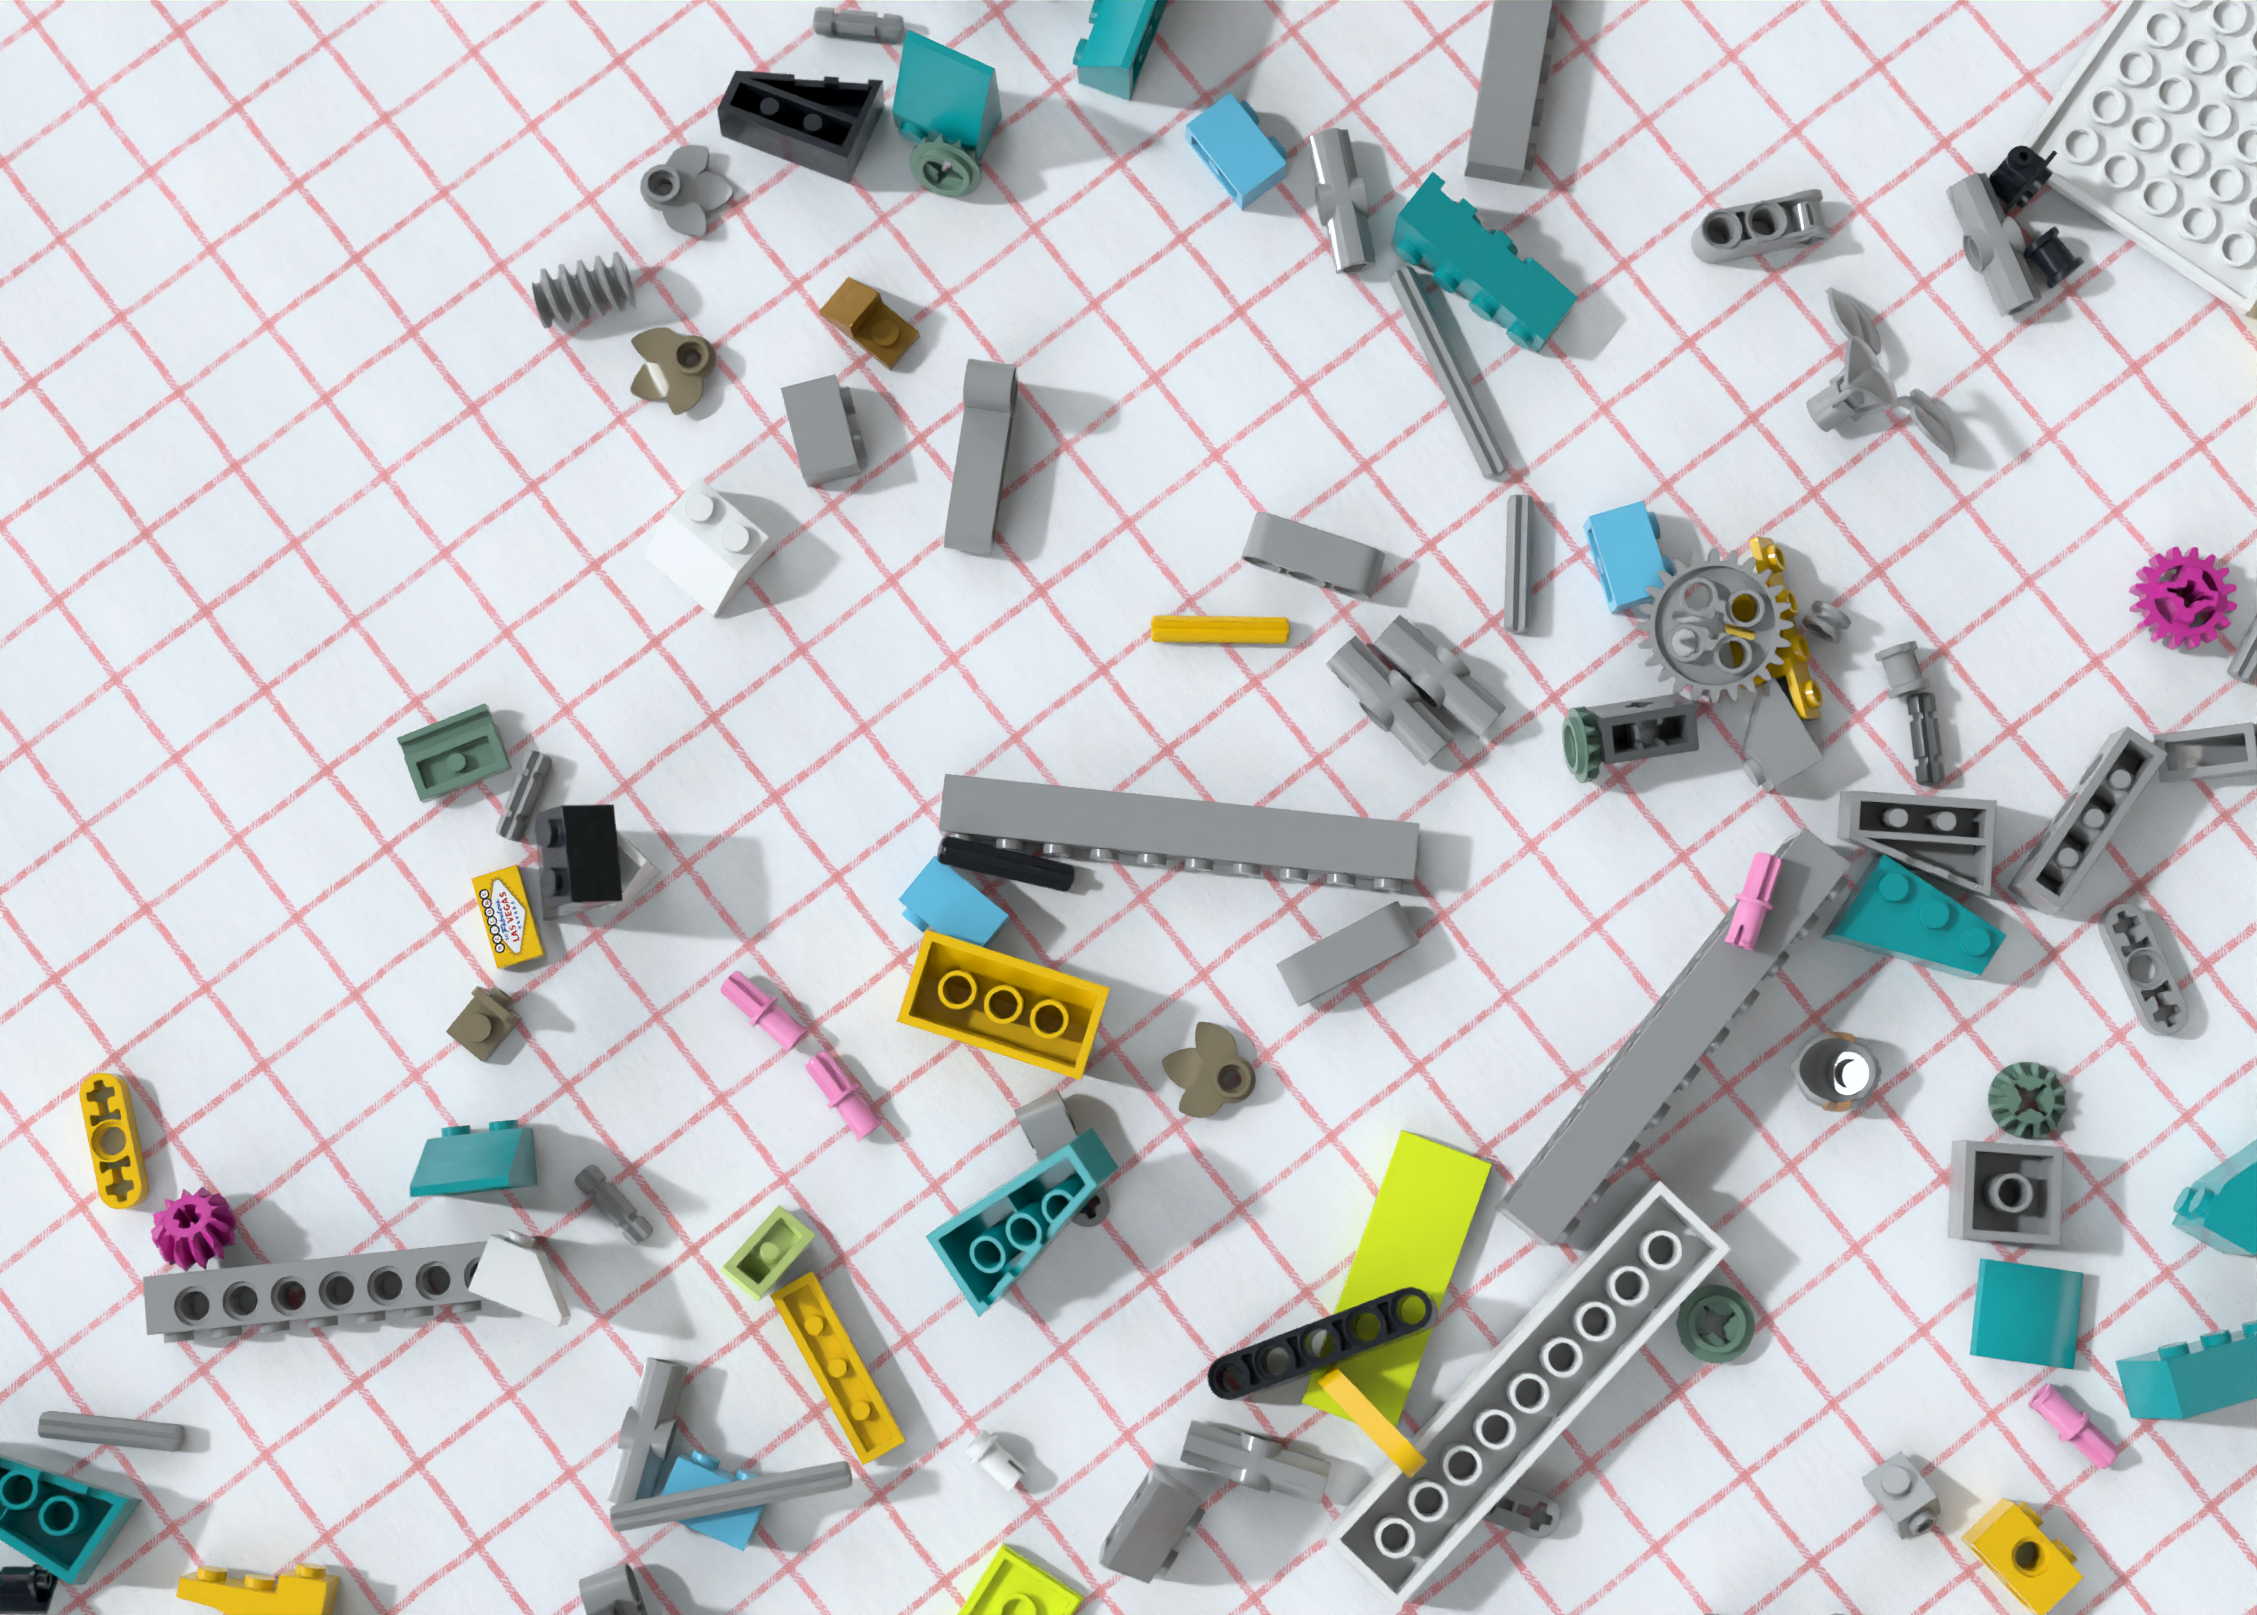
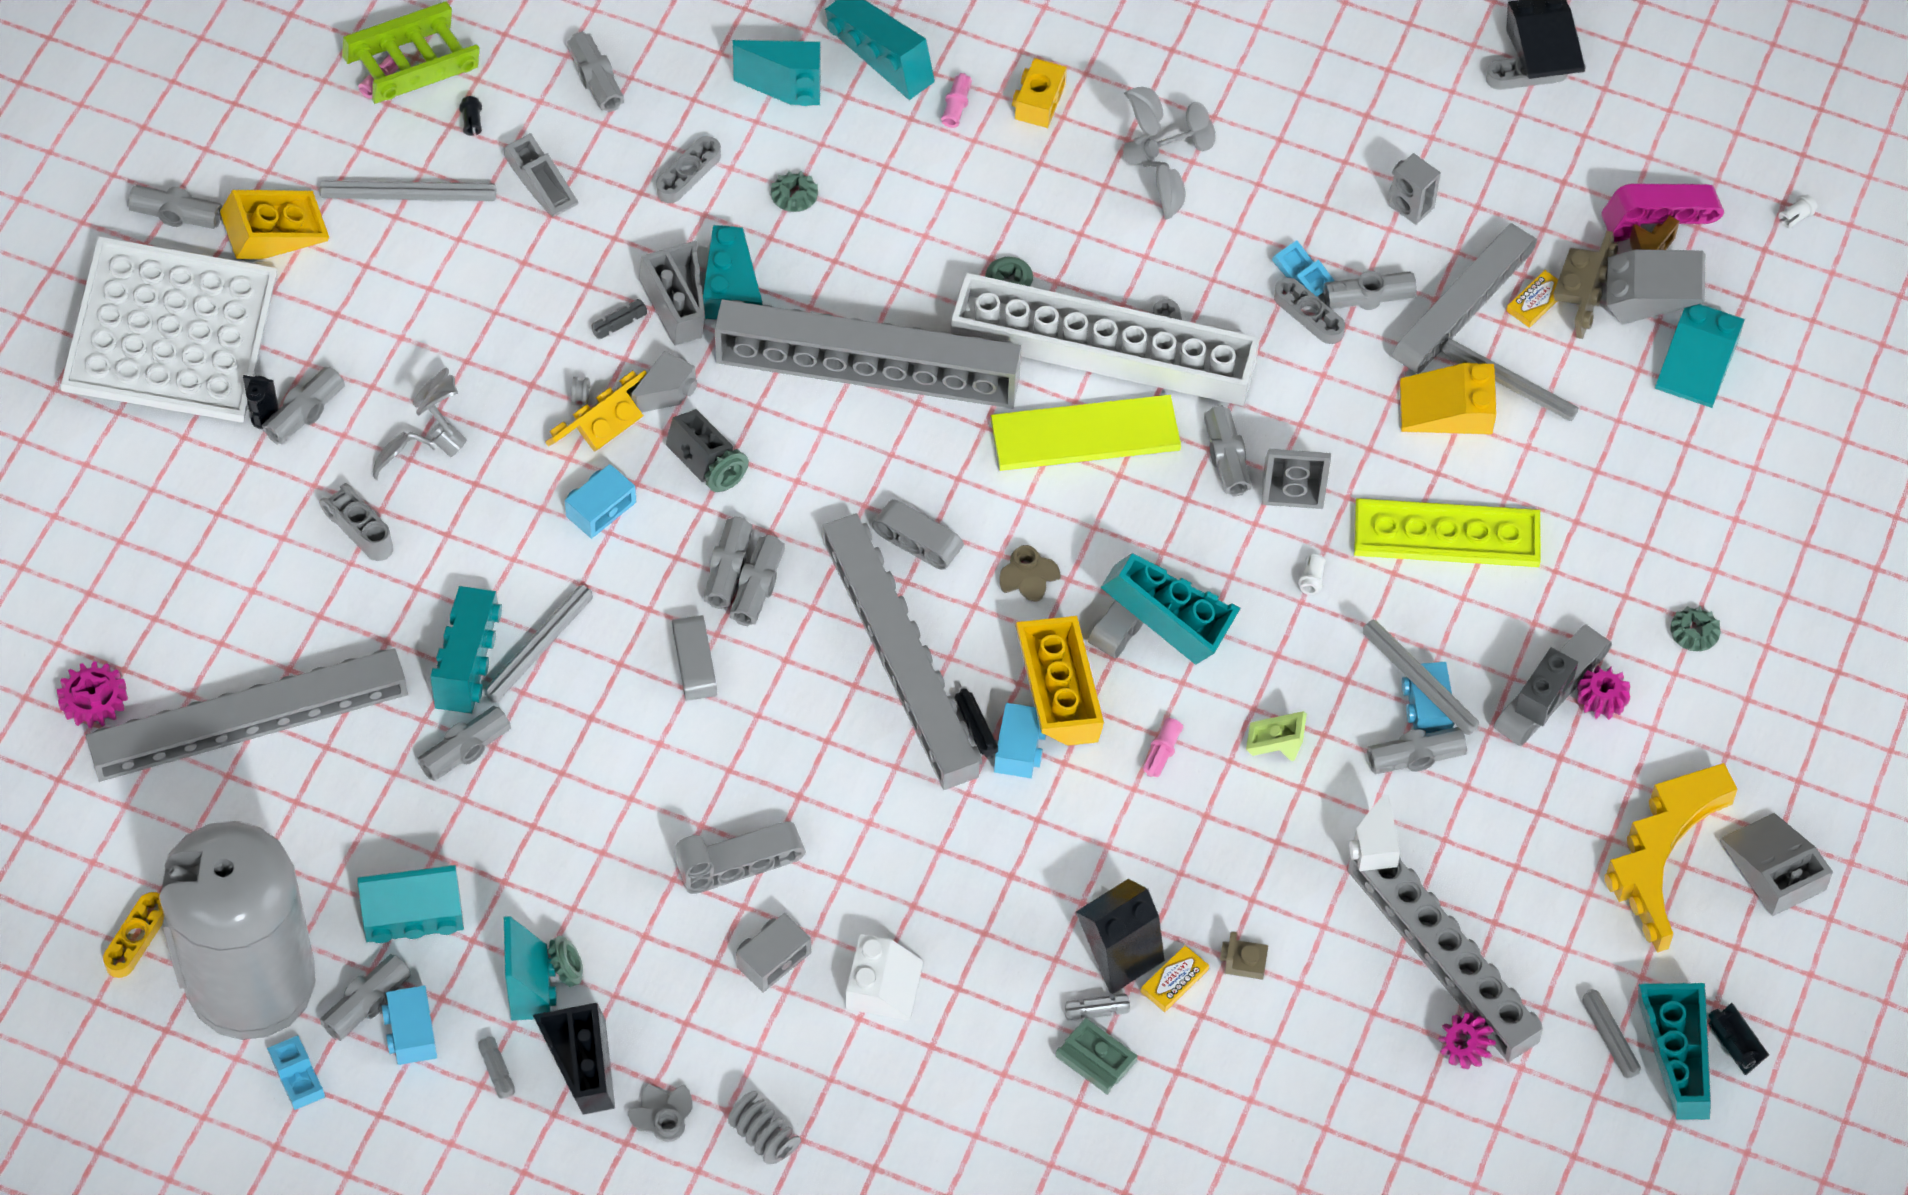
camera: 125 degrees left, 25 degrees down
(95, 1131) = (1450, 1110): yellow beam -> none
(476, 1161) = (1329, 899): teal slope -> none
(613, 1205) = (1303, 835): light grey axle -> none
(666, 371) = (786, 1063): dark tan plate -> none
(763, 1010) = (1141, 812): bright pink axle -> none
(838, 1367) = (1317, 670): yellow plate -> none
(869, 322) = (687, 966): pearl gold slope -> none
(1220, 629) = (767, 688): yellow axle -> none
(1237, 149) = (463, 812): medium azure brick -> none
(1299, 1344) = (1146, 454): black beam -> none
(1372, 1421) = (1169, 393): yellow beam -> none
(1518, 564) = (635, 556): light grey axle -> none
(1724, 583) = (594, 435): light grey gear -> none
(1754, 901) = (773, 328): bright pink axle -> none
(1836, 1071) = (836, 276): light grey hair -> none
(1902, 669) = (586, 343): light grey bush -> none
(1903, 1496) = (1043, 156): light grey bracket -> none
(2006, 1192) = (853, 173): light grey brick -> none
(2026, 1313) = (911, 143): teal slope -> none
(2052, 257) = (295, 372): black bush -> none
(2087, 821) = (623, 220): light grey brick -> none
(2199, 586) = (478, 225): dark pink gear -> none

